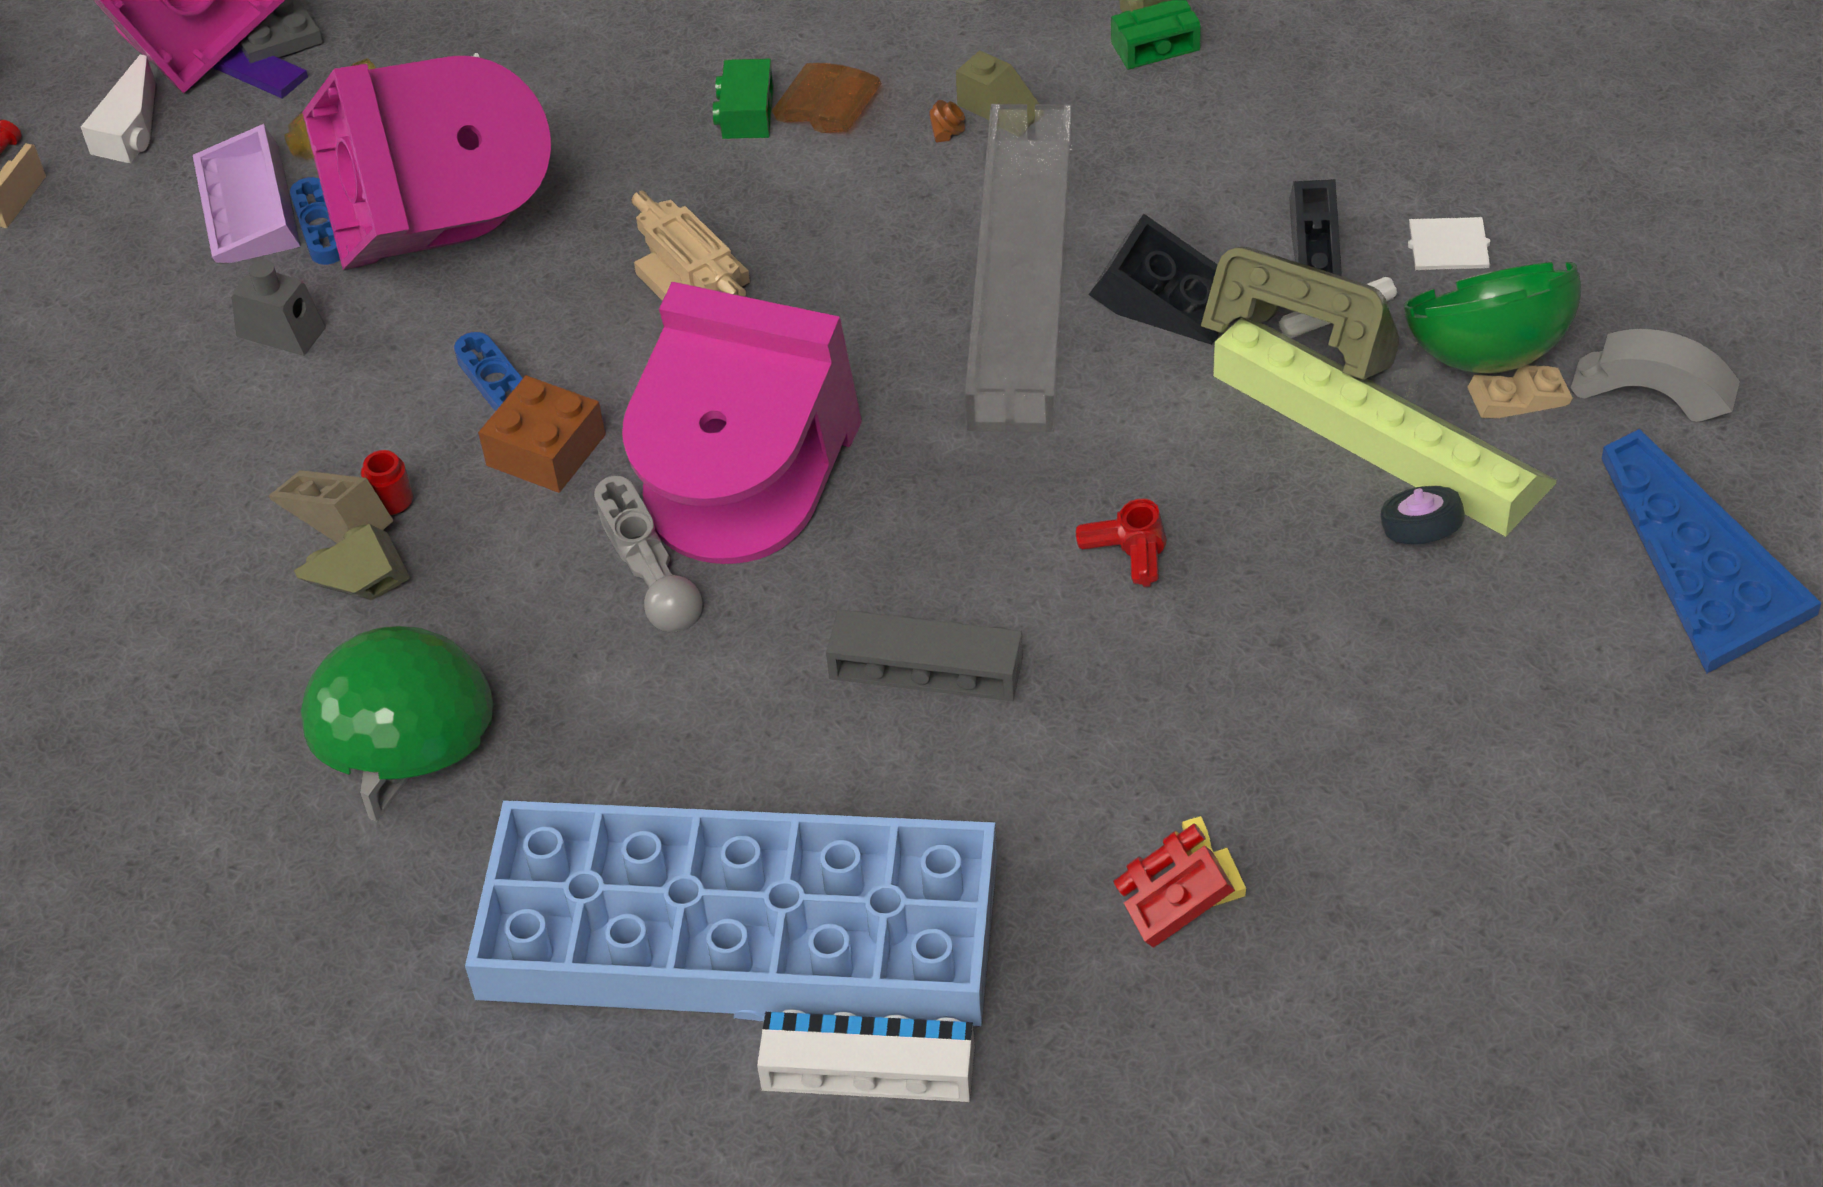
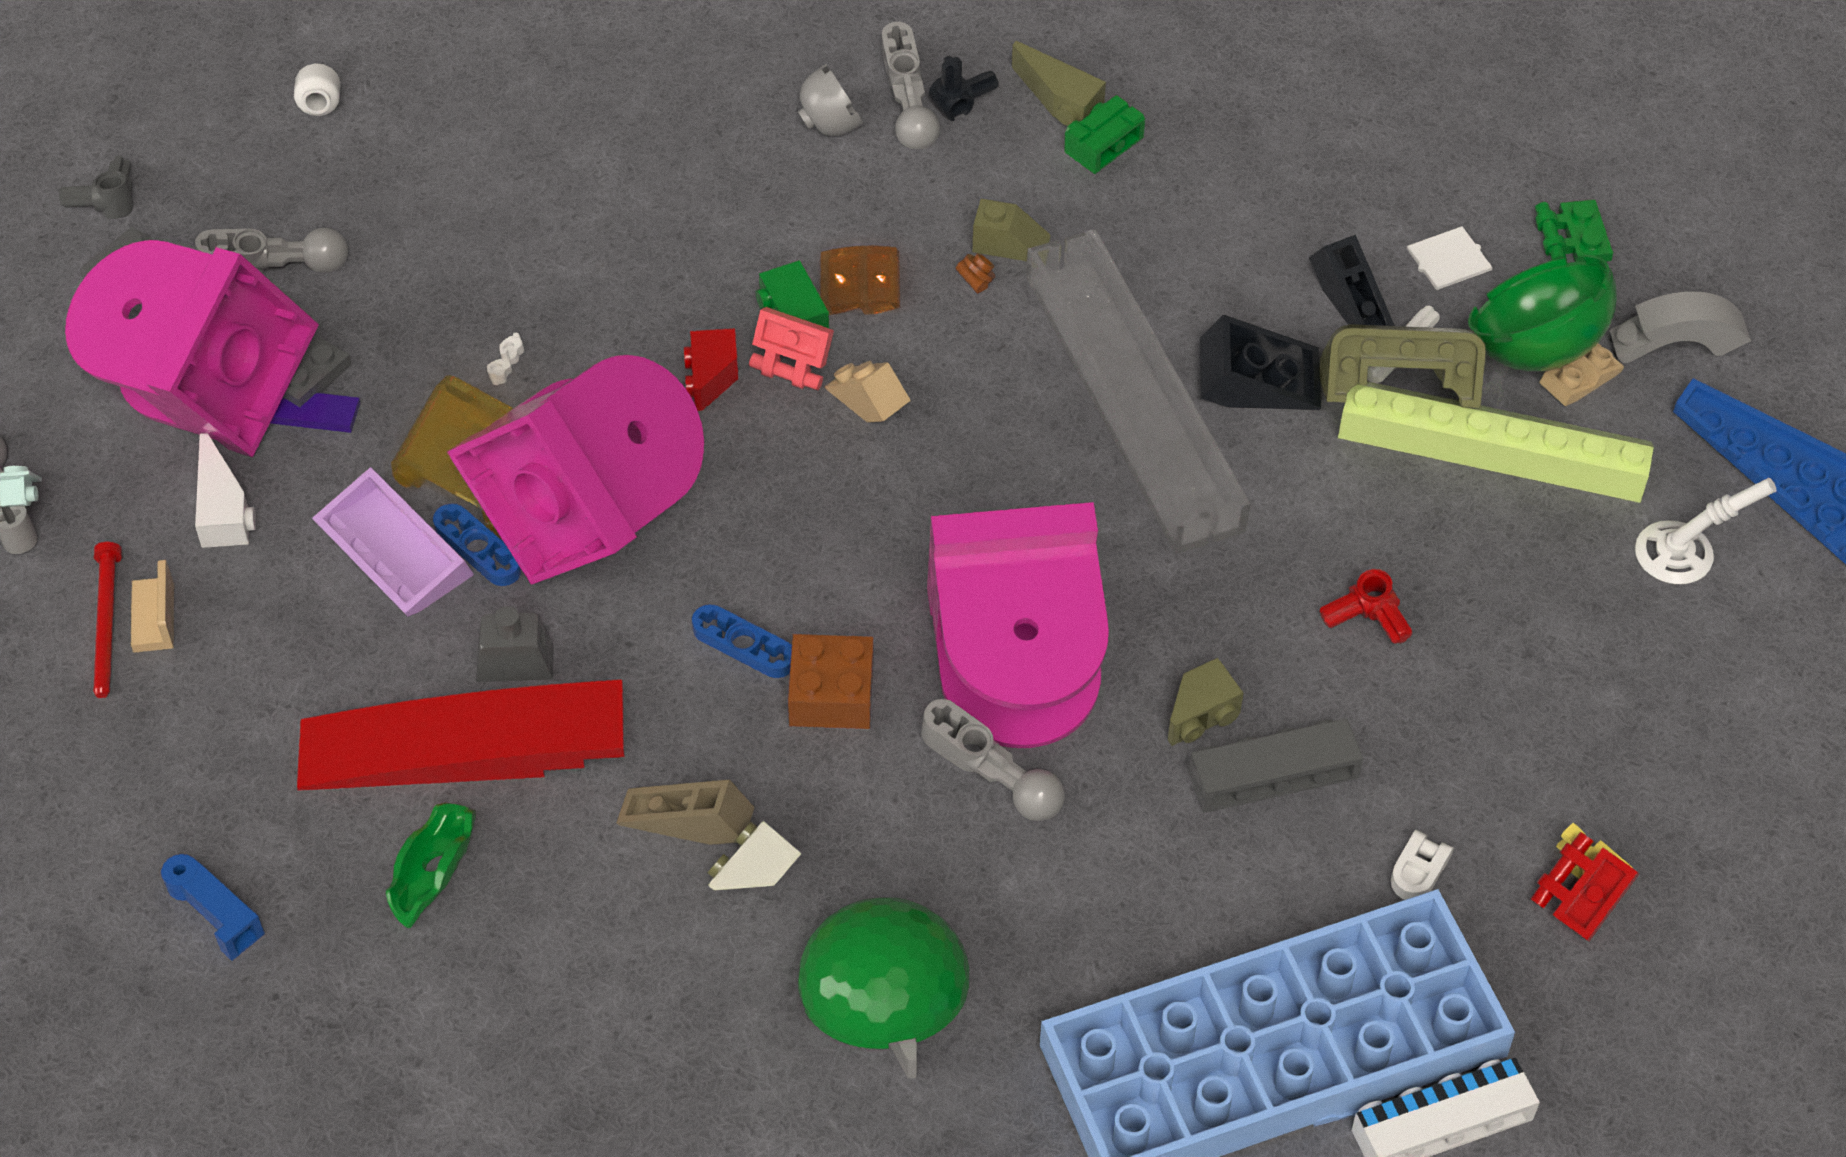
camera: 30 degrees left, 5 degrees up
(78, 469) = (444, 835): none -> green piece
(187, 376) = (464, 737): none -> red slope
(388, 479) = (730, 764): red brick -> none
(631, 130) = (712, 364): none -> red slope
(683, 251) = (851, 477): tan piece -> none
(716, 124) = (794, 339): none -> coral plate
(762, 191) = (869, 390): none -> tan slope
(888, 571) = (1204, 700): none -> olive slope
(1003, 807) = (1414, 875): none -> white plate
(1422, 514) = (1578, 507): black wheel -> none
(1517, 583) = (1678, 543): none -> white dish
(1616, 254) = (1583, 230): none -> green plate

